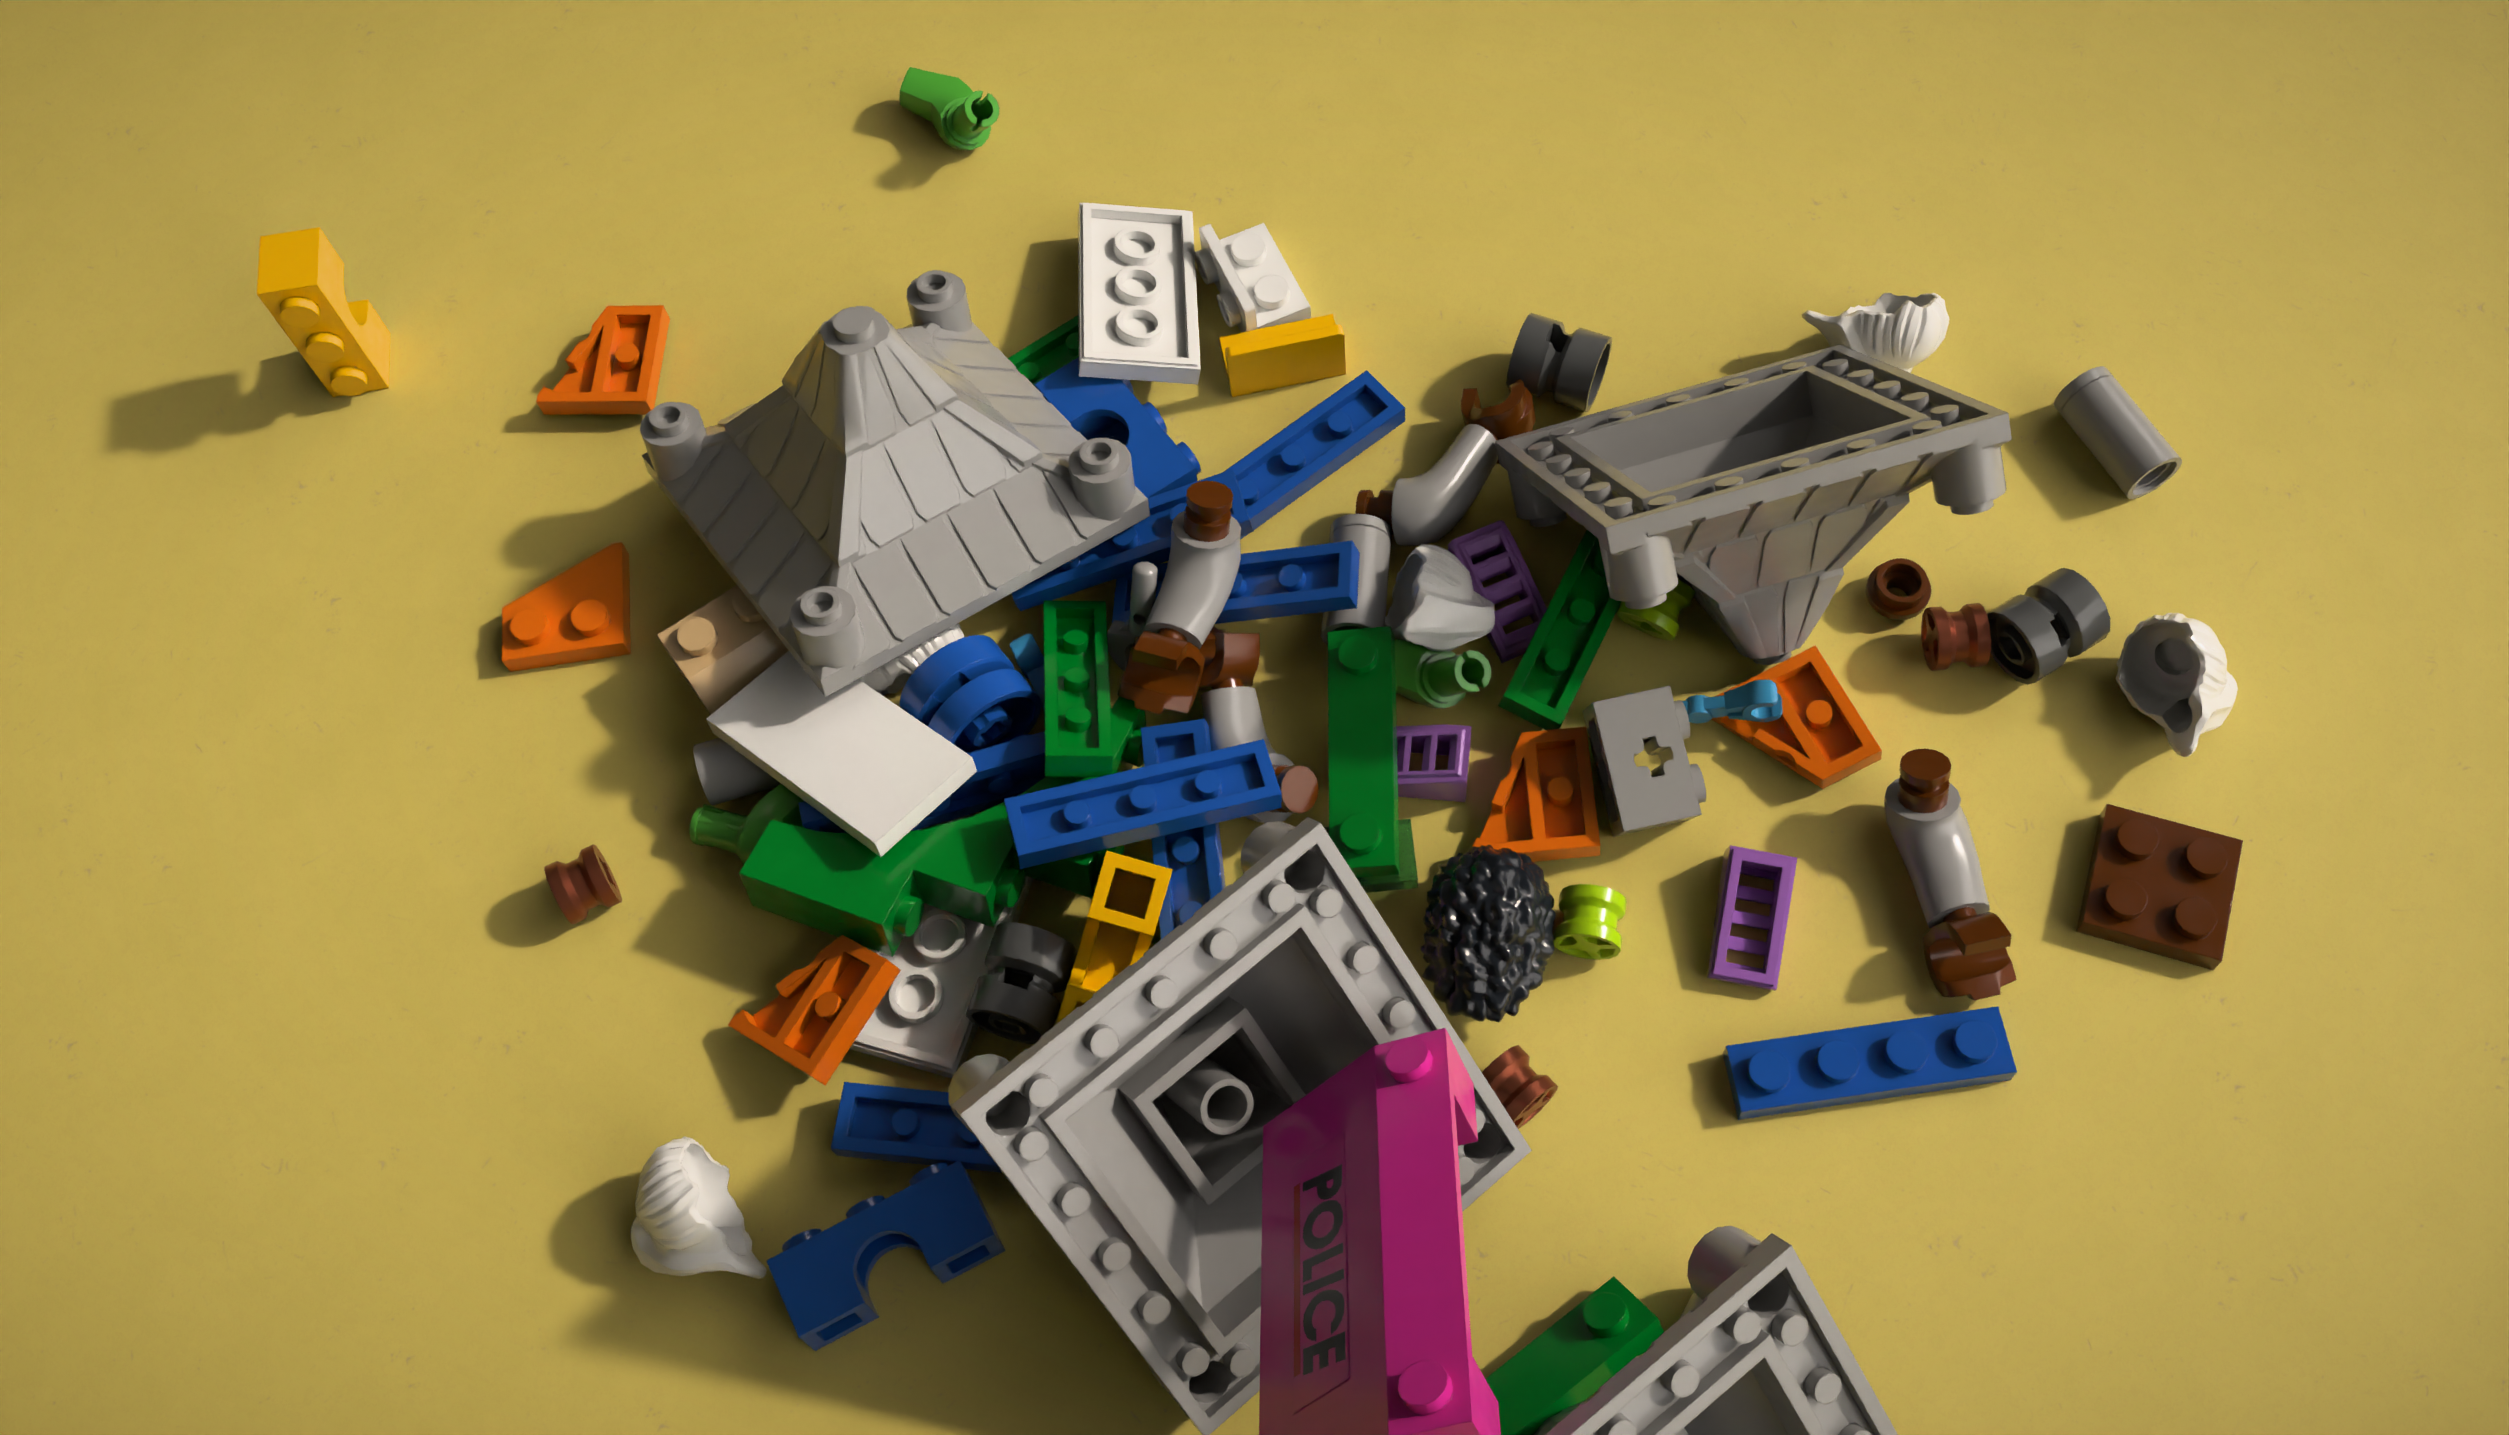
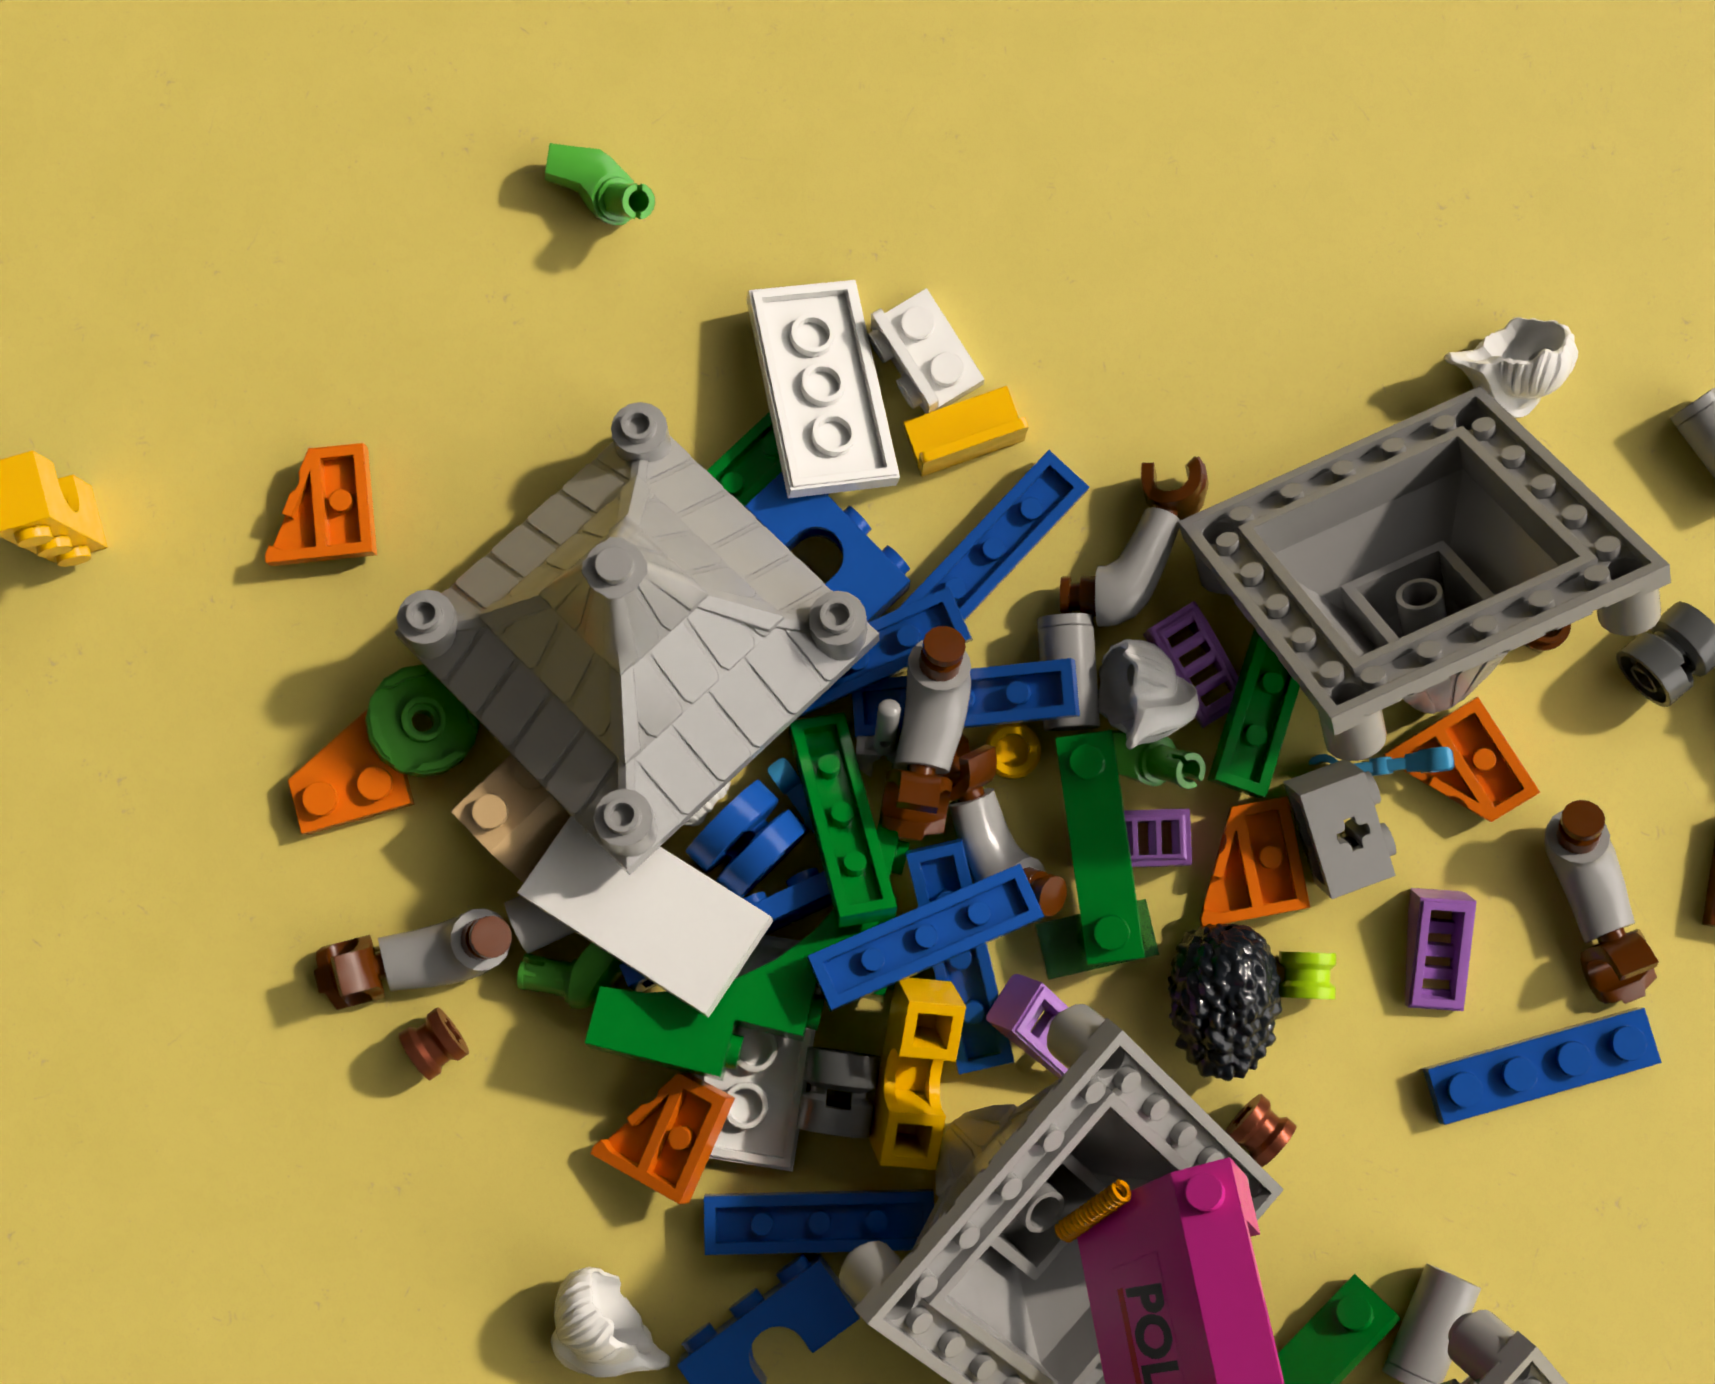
camera: 15 degrees left, 20 degrees up
(601, 796) = (414, 959): none -> piece
(650, 540) = (403, 747): none -> bright green plate
(1283, 1104) = (1093, 1211): none -> light orange piece
(1286, 662) = (1016, 750): none -> yellow tile
(1559, 361) = (1226, 424): dark grey wheel -> none
(1956, 636) = (1595, 669): copper wheel -> none

